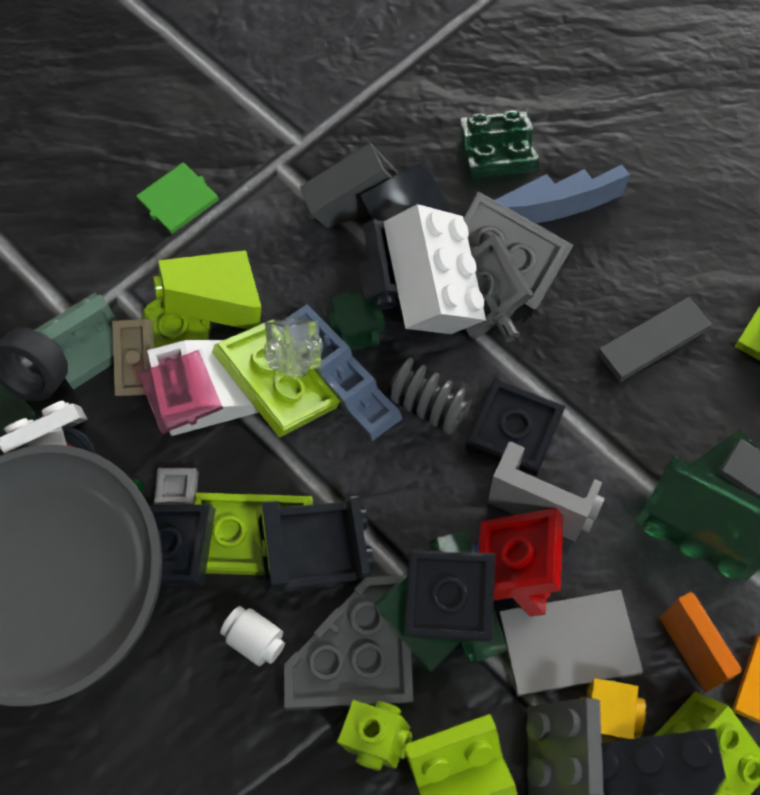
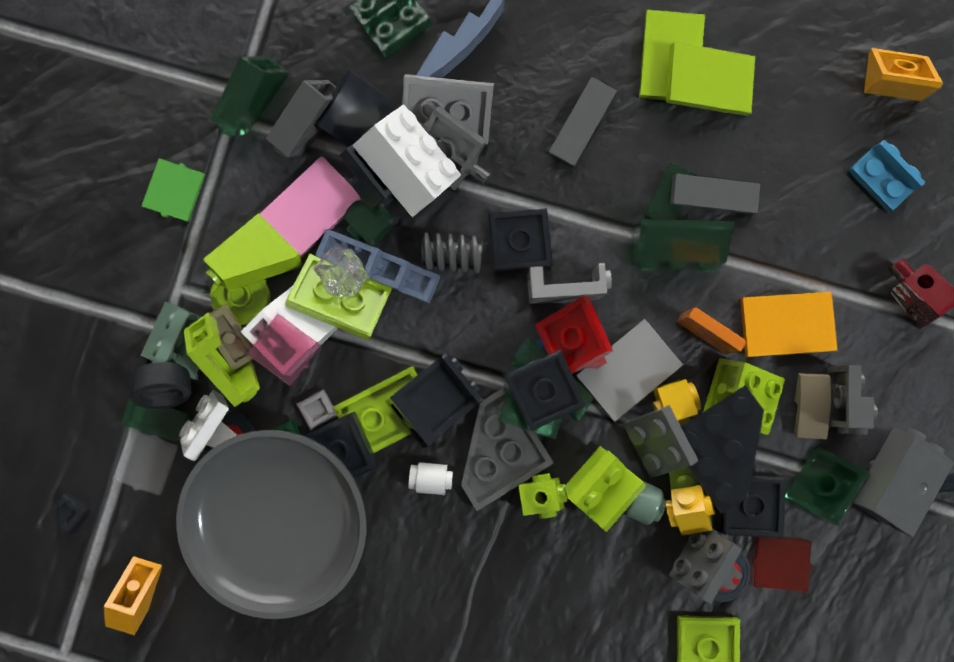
camera: 30 degrees left, 20 degrees up
(98, 372) = (201, 345): none -> lime panel
(304, 276) = (310, 206): none -> bright pink tile
(308, 142) = (248, 94): none -> clear green slope

